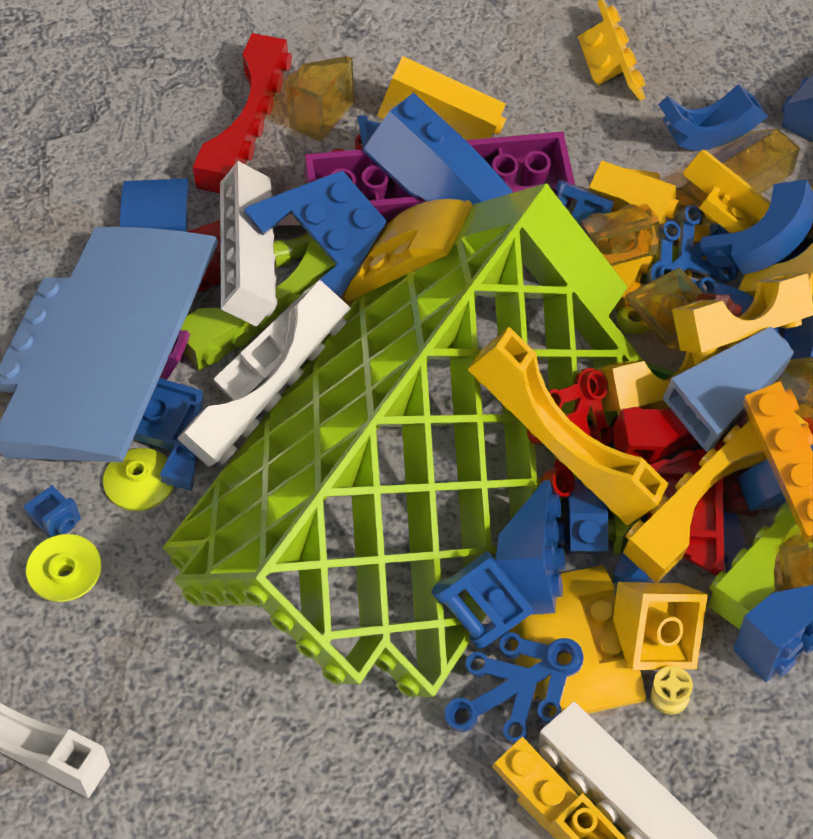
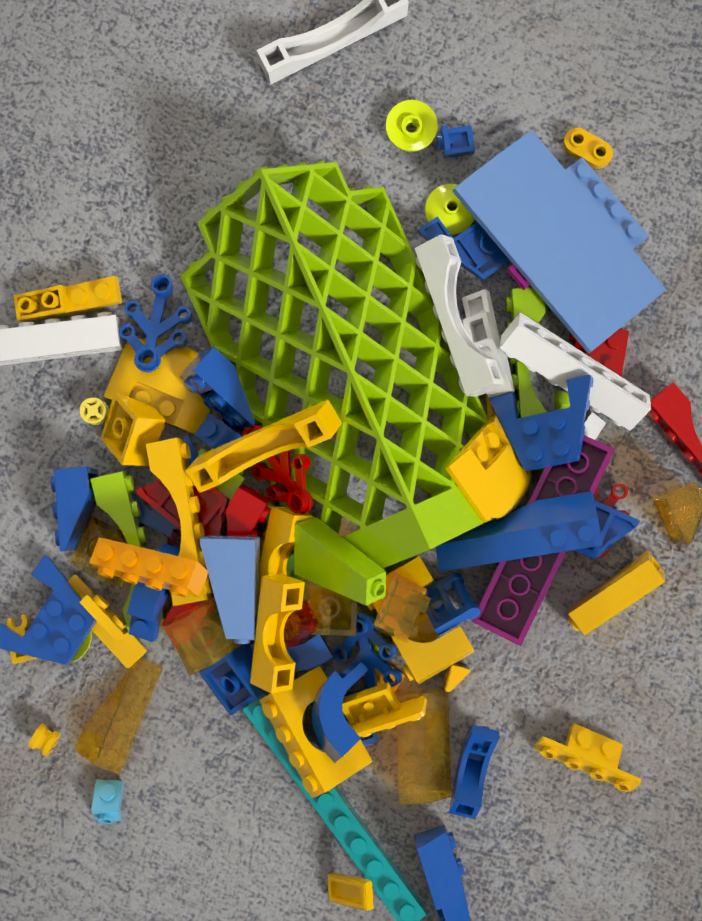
camera: 125 degrees right, 30 degrees up
(155, 204) = (664, 343): blue slope -> none
(492, 592) = (204, 331): blue plate -> none
(627, 299) = (335, 563): none -> lime slope

